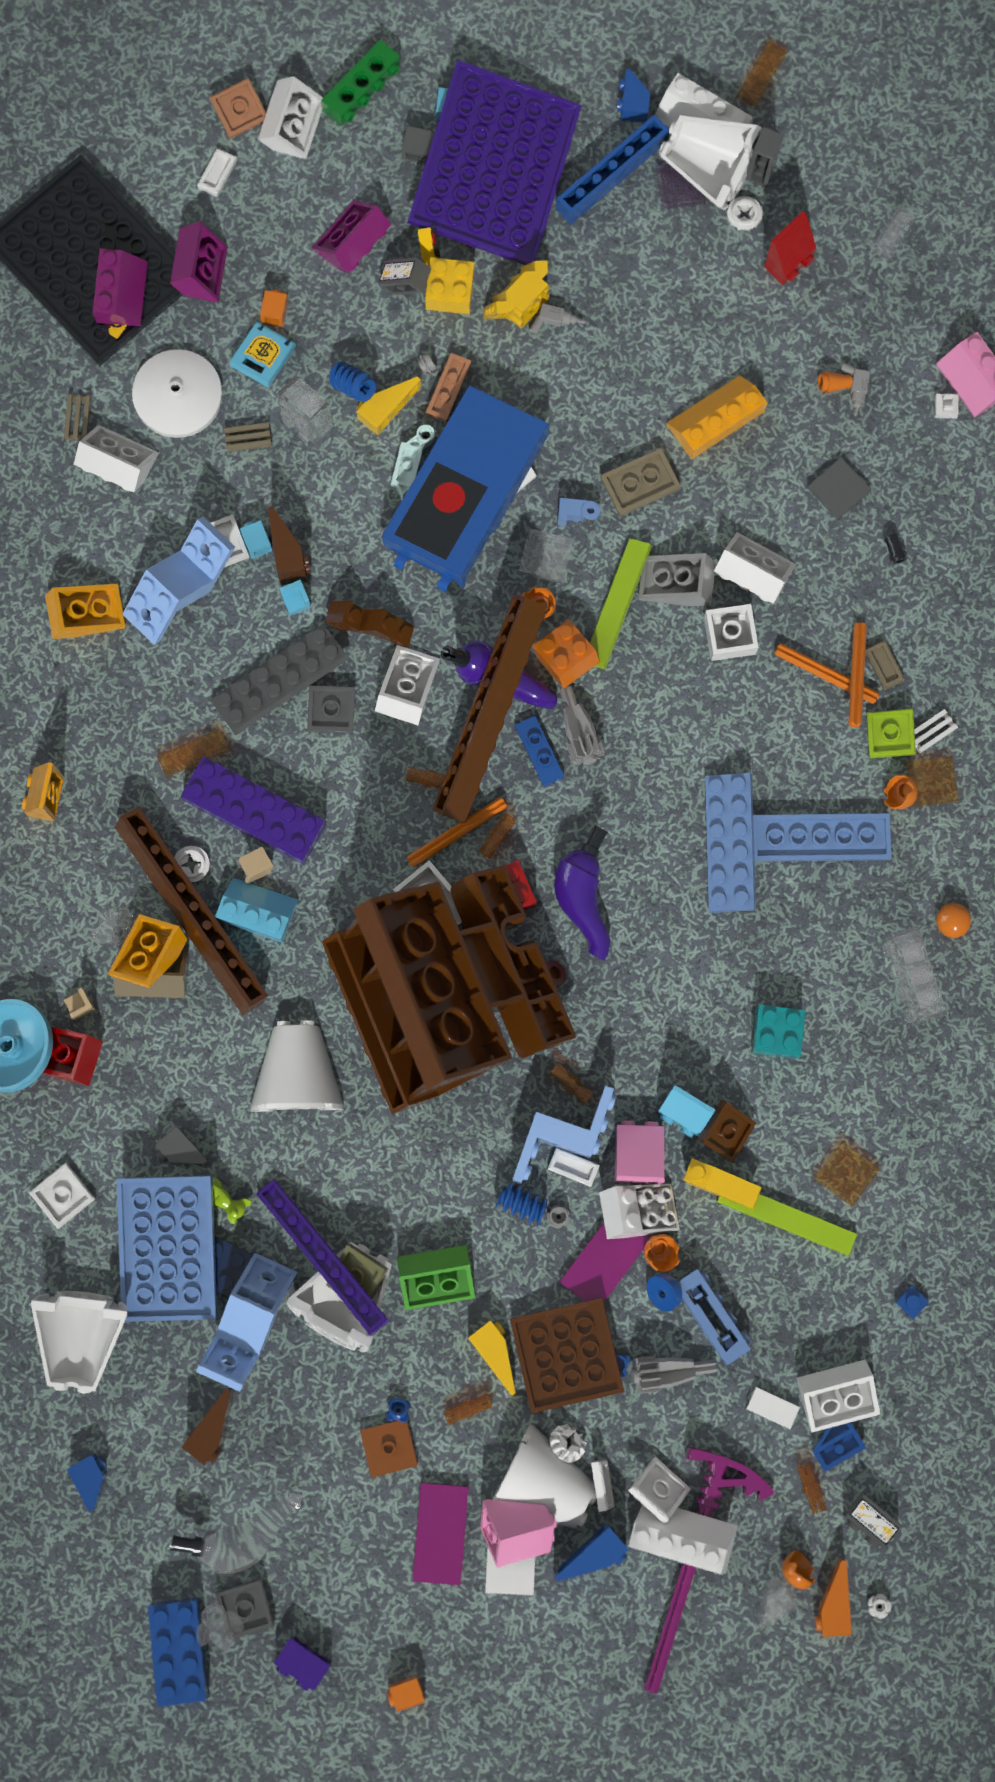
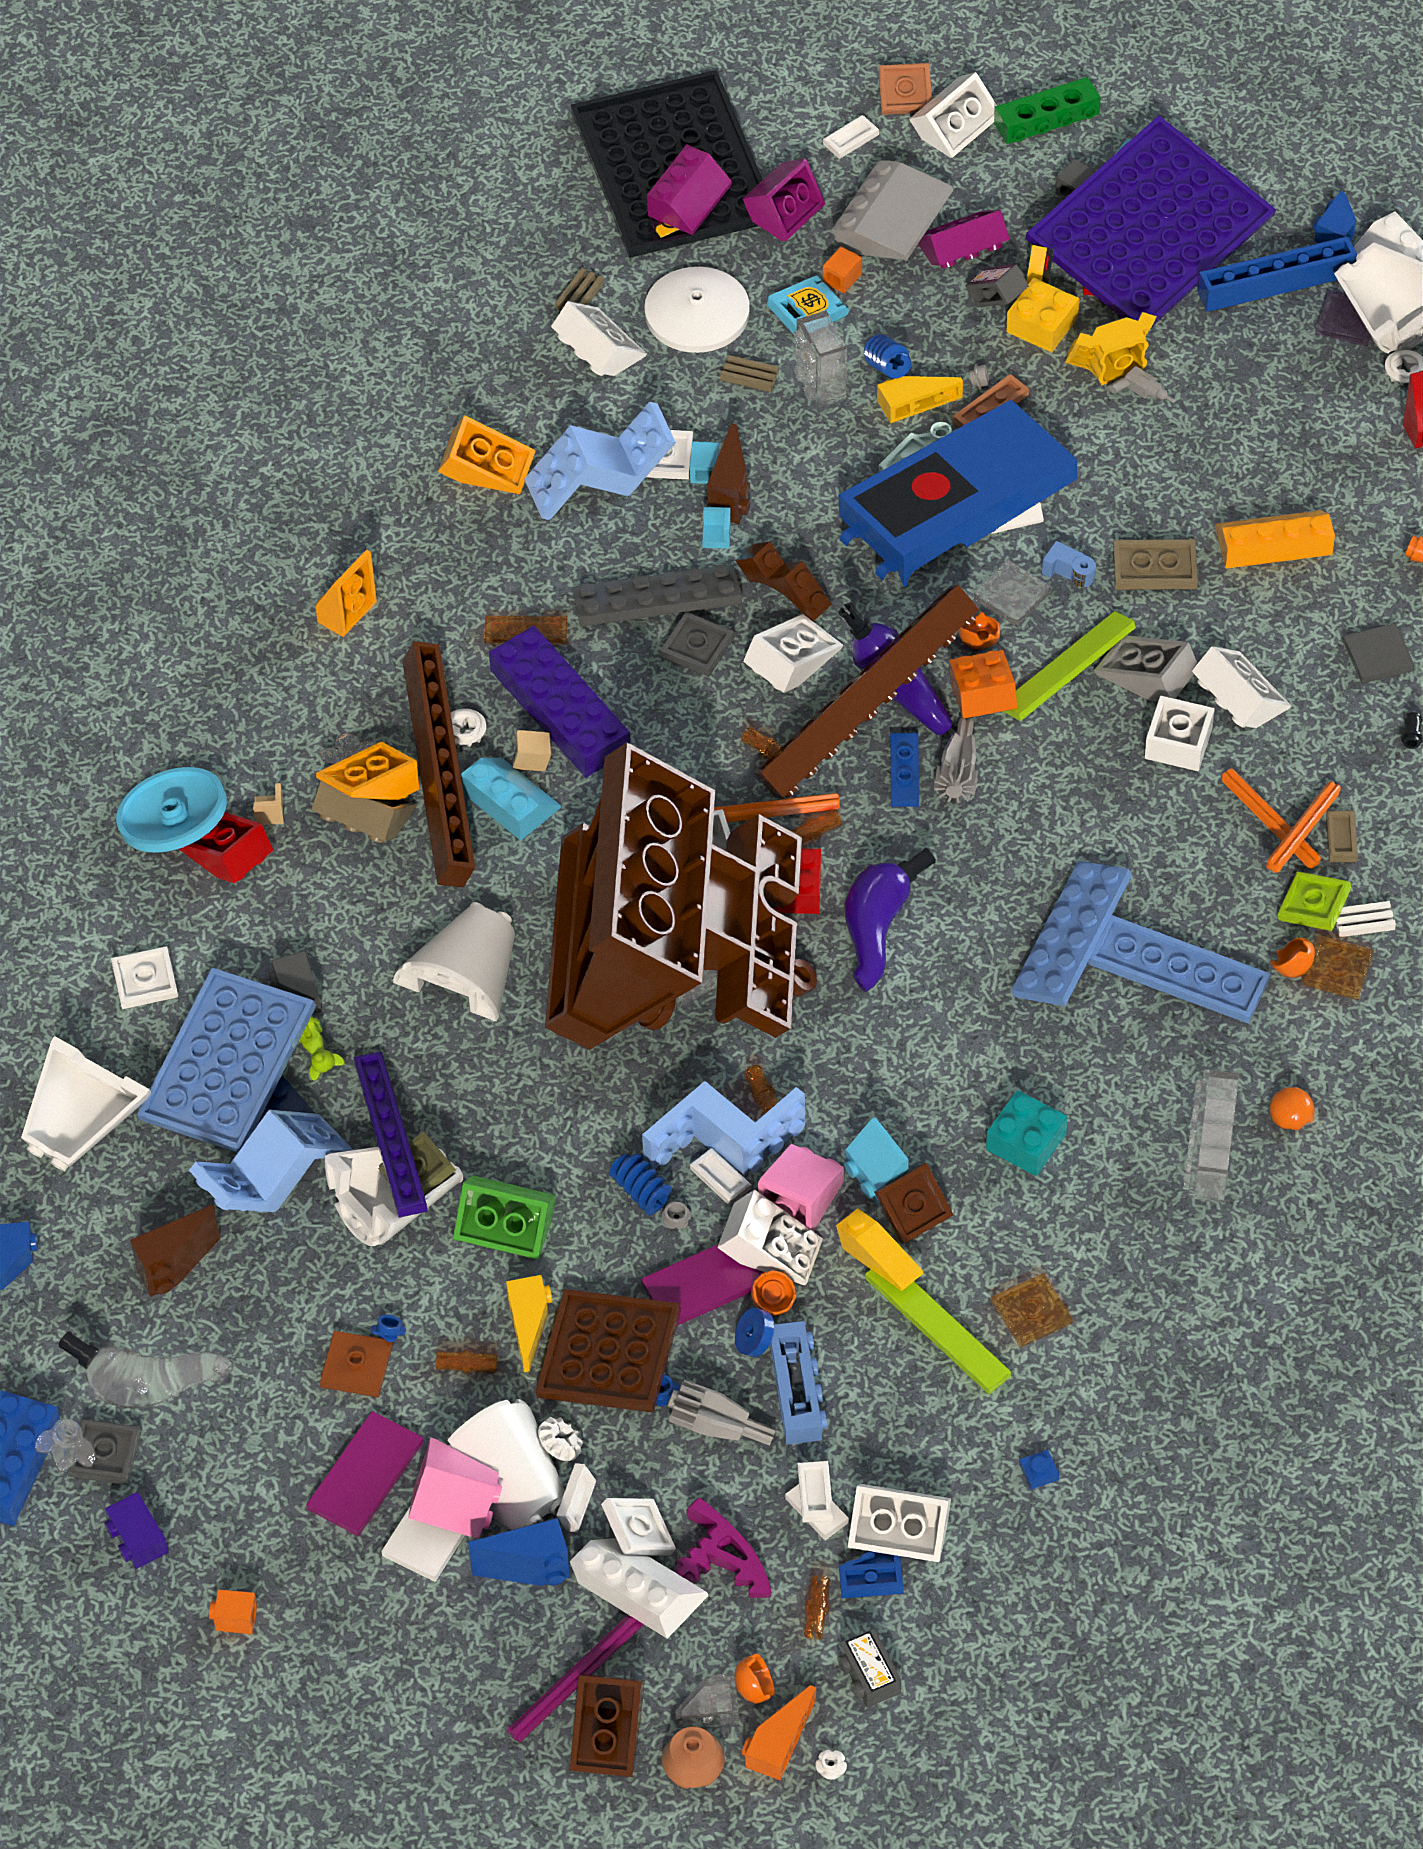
camera: 30 degrees right, 25 degrees down
(288, 238) = (891, 211): none -> light grey slope
(712, 1652) = (606, 1724): none -> reddish brown slope
(768, 1399) = (815, 1491): none -> white tile
(783, 1649) = (693, 1758): none -> nougat cone

